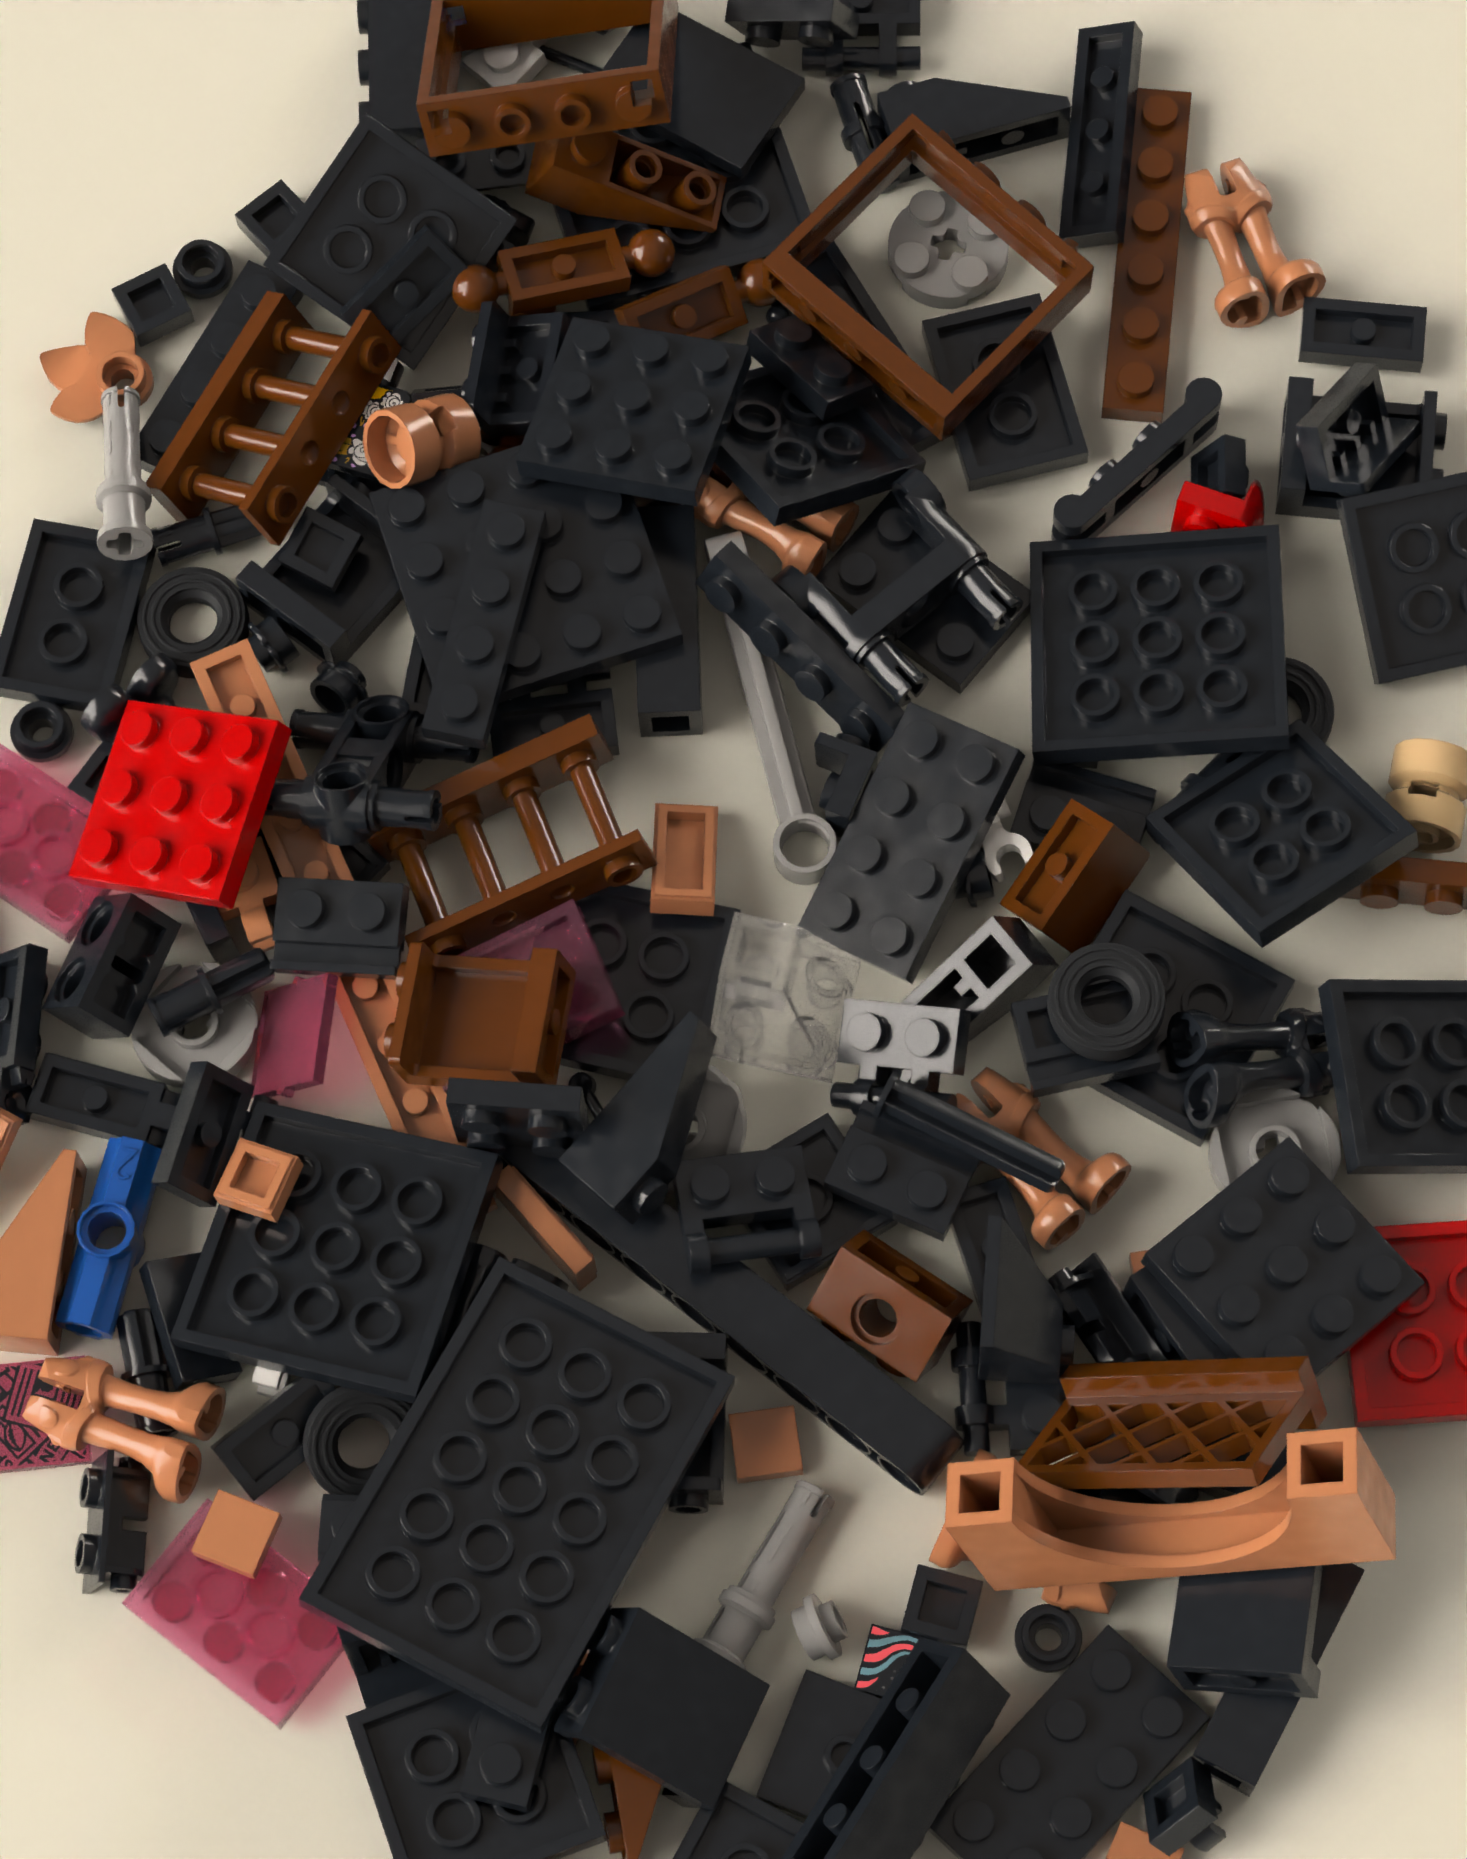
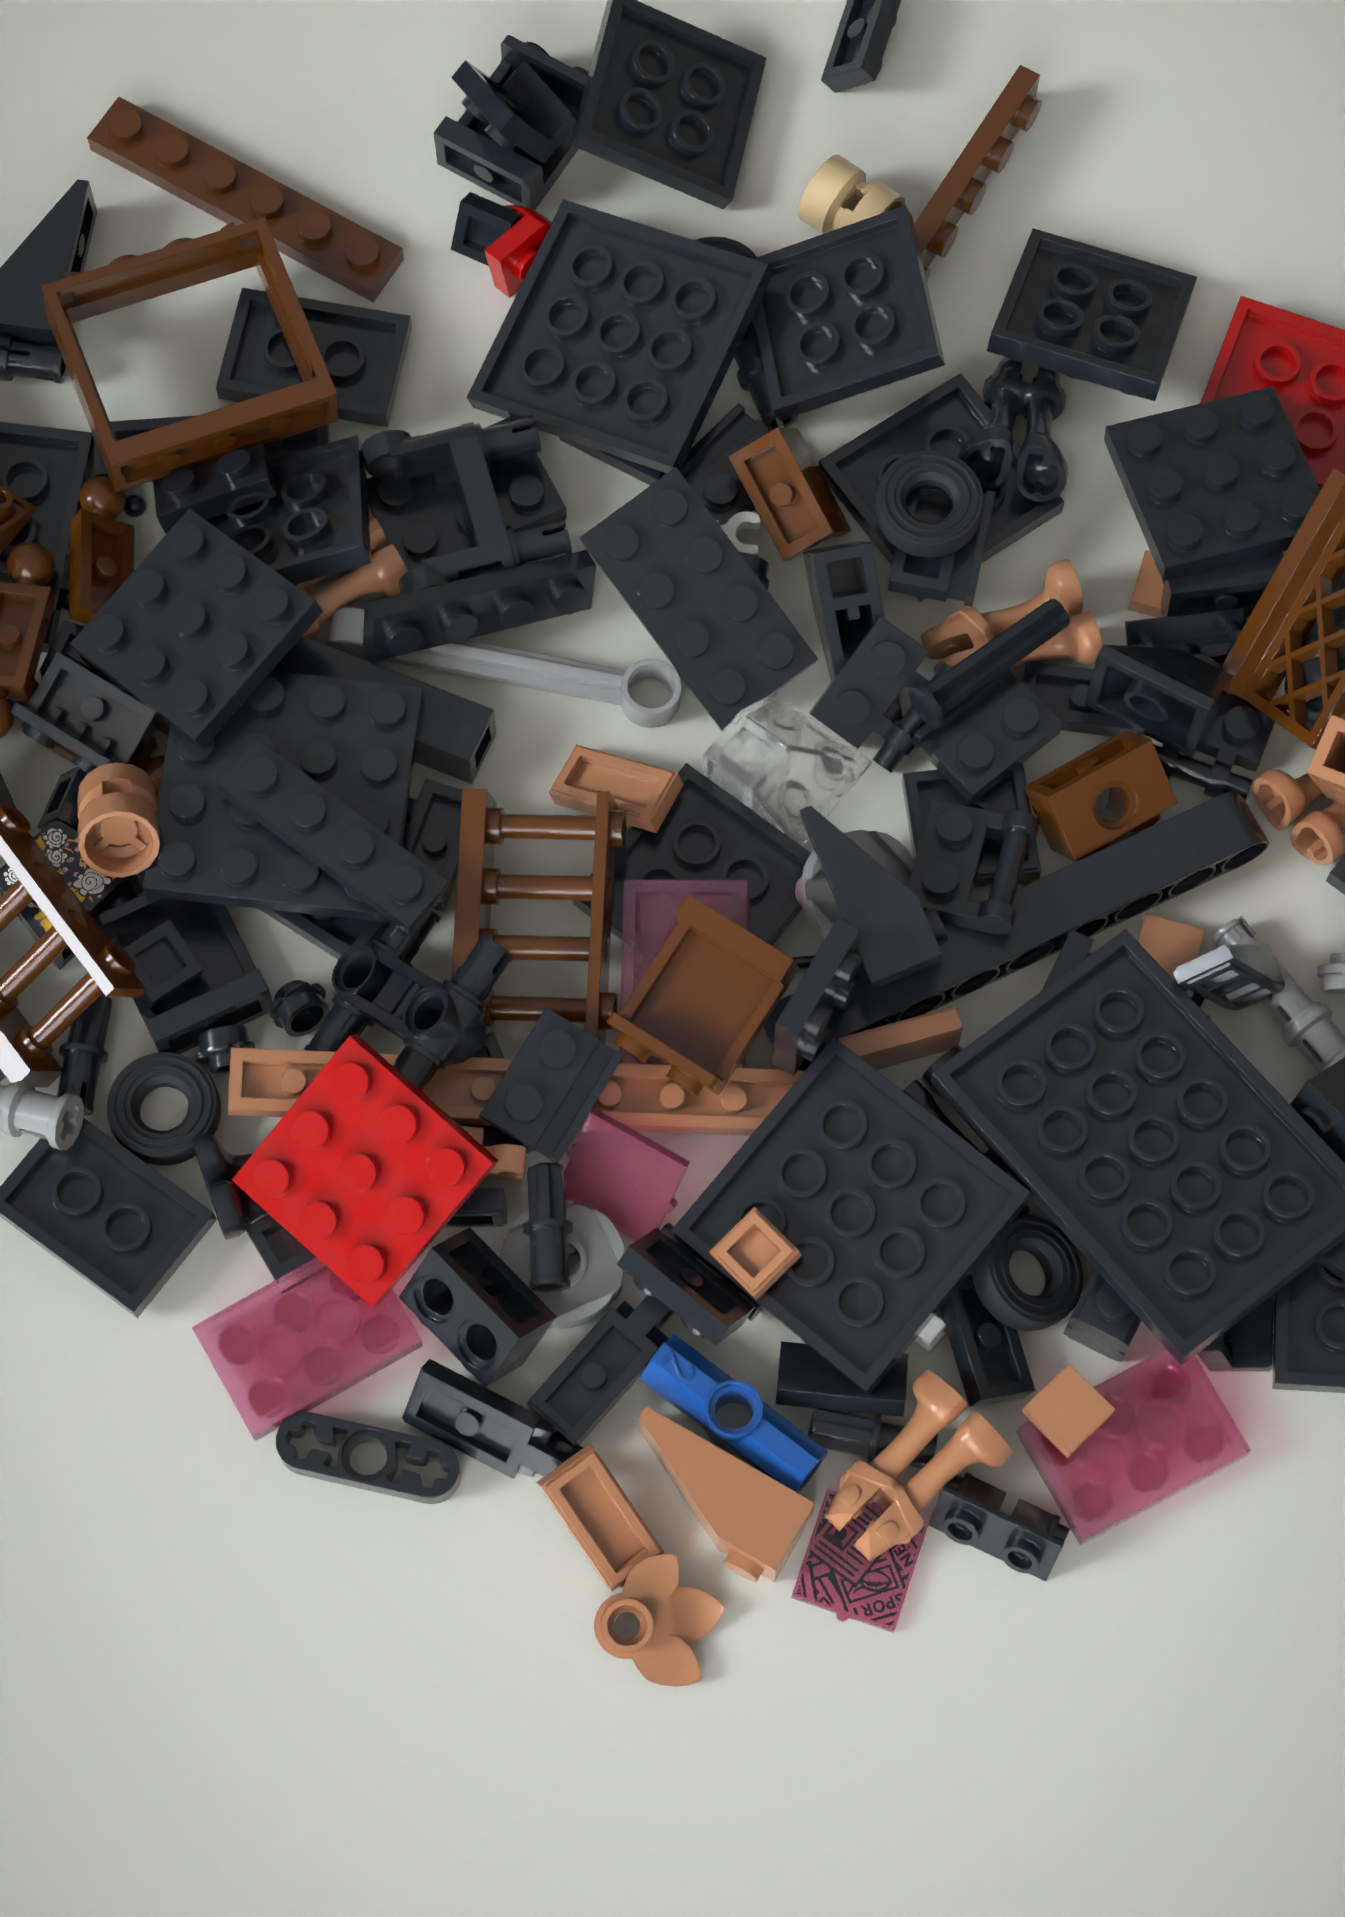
camera: 70 degrees left, 0 degrees up
(39, 715) = (197, 1268): black plate -> none
(746, 1508) = (1233, 975): none -> black slope
(851, 770) = (614, 626): black bracket -> none
(916, 260) = (153, 373): light grey plate -> none
(1101, 134) = (117, 176): black plate -> none
(1153, 456) = (436, 266): black plate -> none
(1246, 211) = (239, 112): nougat piece -> none
(1272, 1116) = (1076, 433): light grey plate -> none
(1362, 332) = (414, 73): black plate -> none

